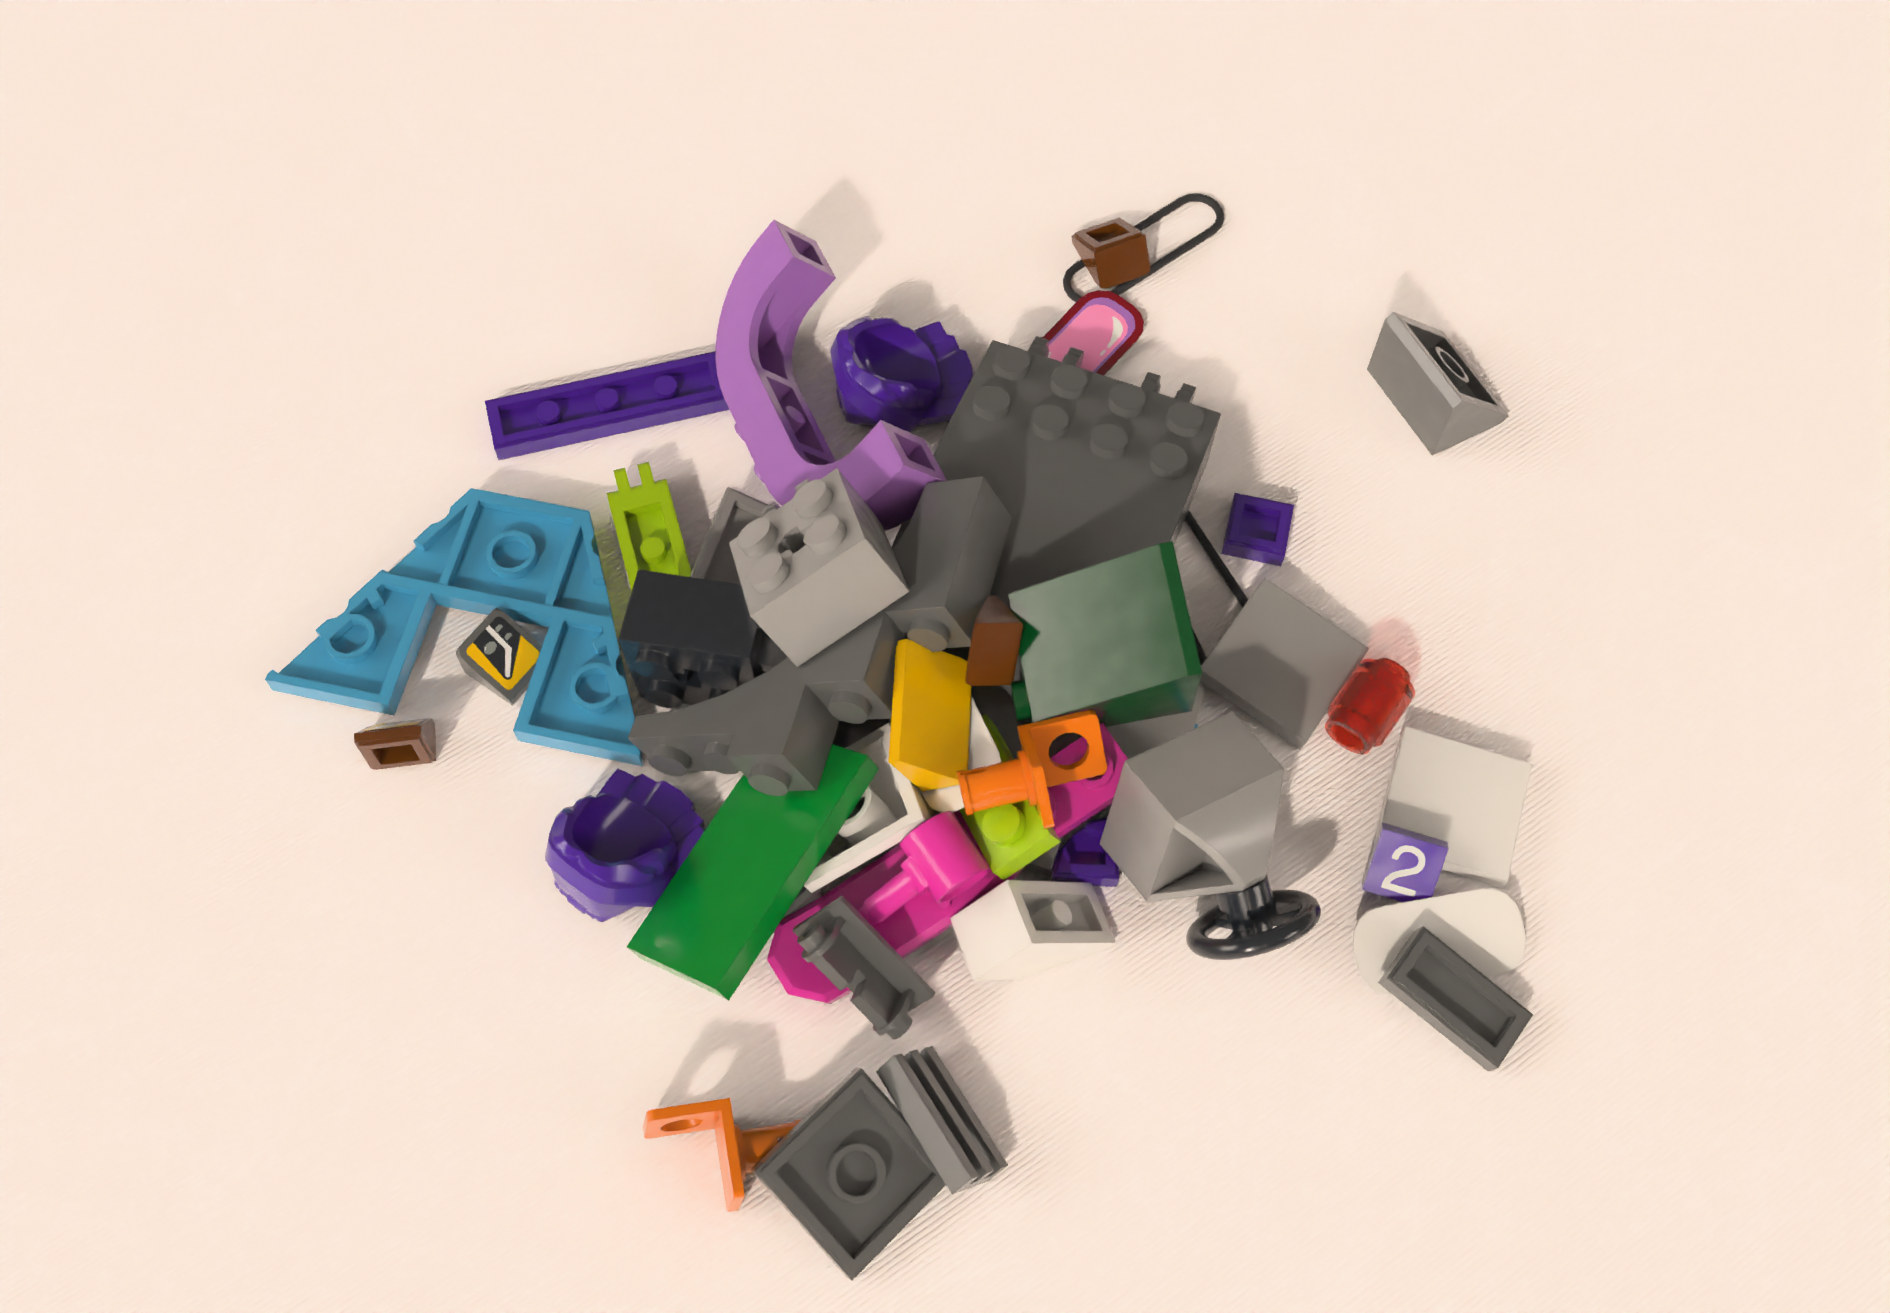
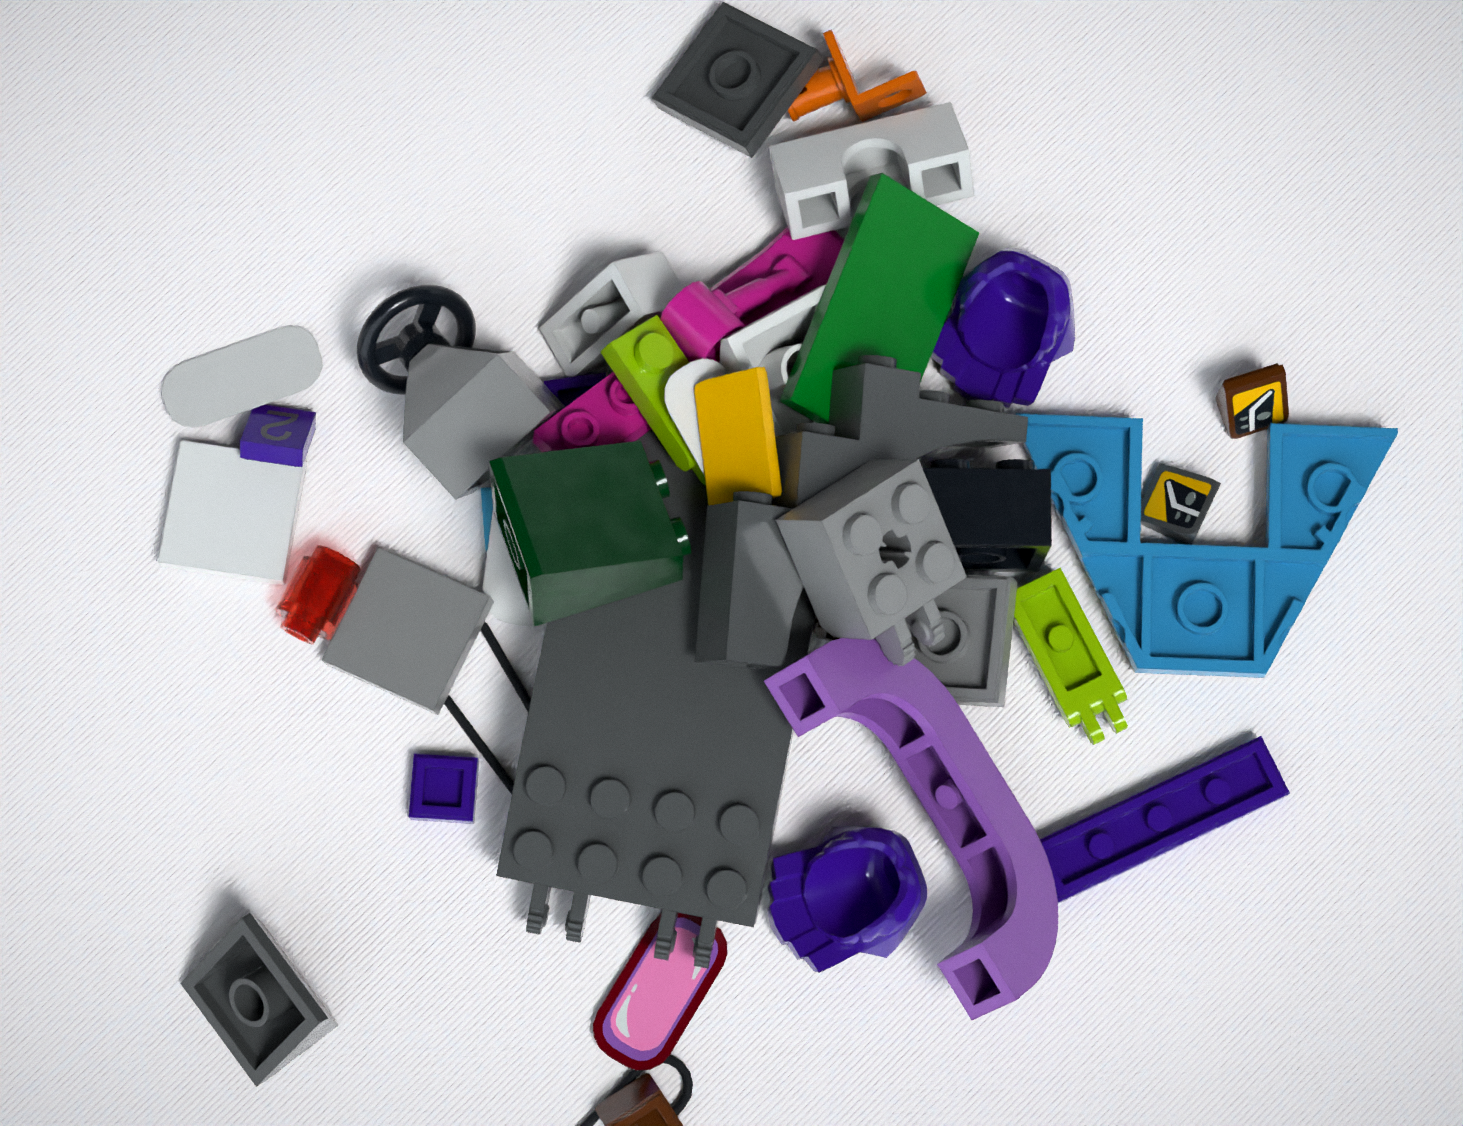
camera: 175 degrees right, 15 degrees up
(667, 1046) = (825, 170): none -> white arch
(859, 958) = (781, 241): dark grey hinge -> none
(941, 1119) = (665, 143): dark grey tile -> none
(993, 645) = (687, 510): reddish brown slope -> none
(1034, 769) = (638, 379): orange bracket -> none
(1456, 999) = (227, 321): dark grey tile -> none

